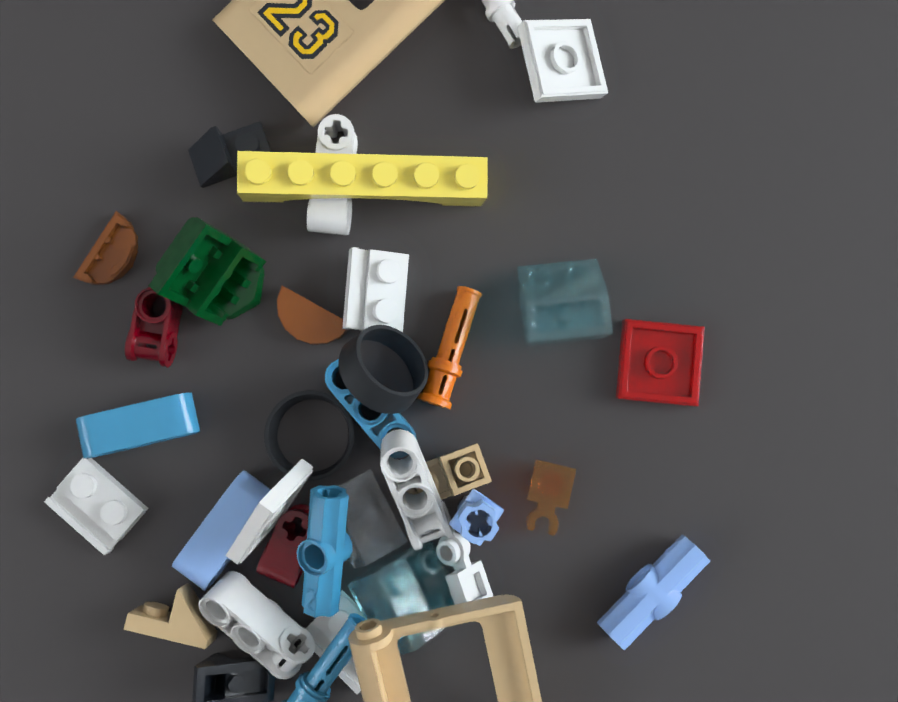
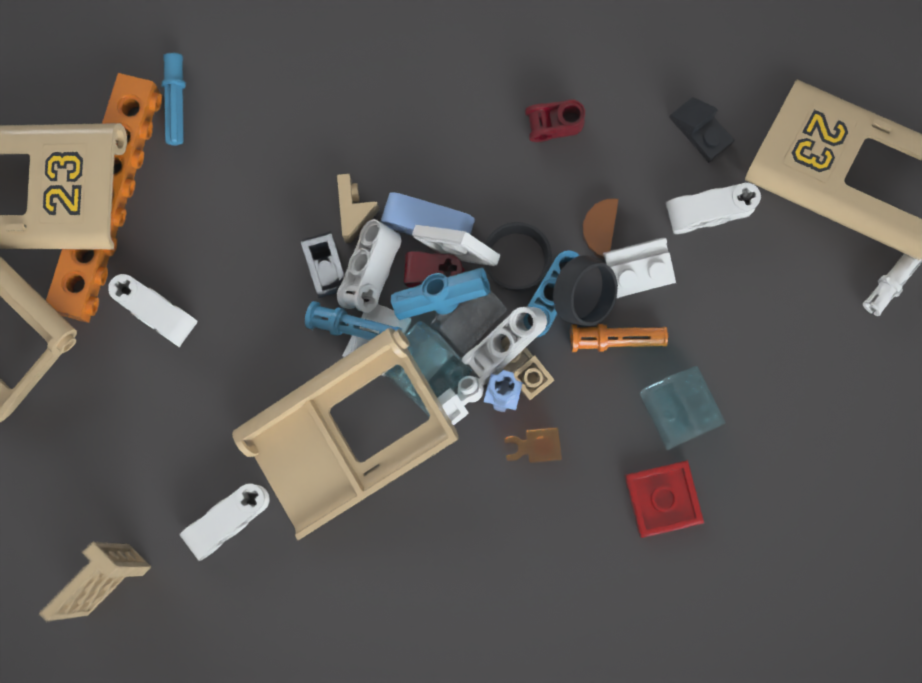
camera: 75 degrees right, 5 degrees down
(96, 505) = (412, 126): white plate -> none
(111, 254) = (596, 71): dark orange tile -> none
(137, 425) = (480, 134): dark azure beam -> none
(209, 273) = (608, 145): dark green piece -> none
(367, 176) = (733, 263): light yellow arch -> none
(562, 60) = (868, 345): white tile -> none
(653, 591) = (490, 548): light blue piece -> none

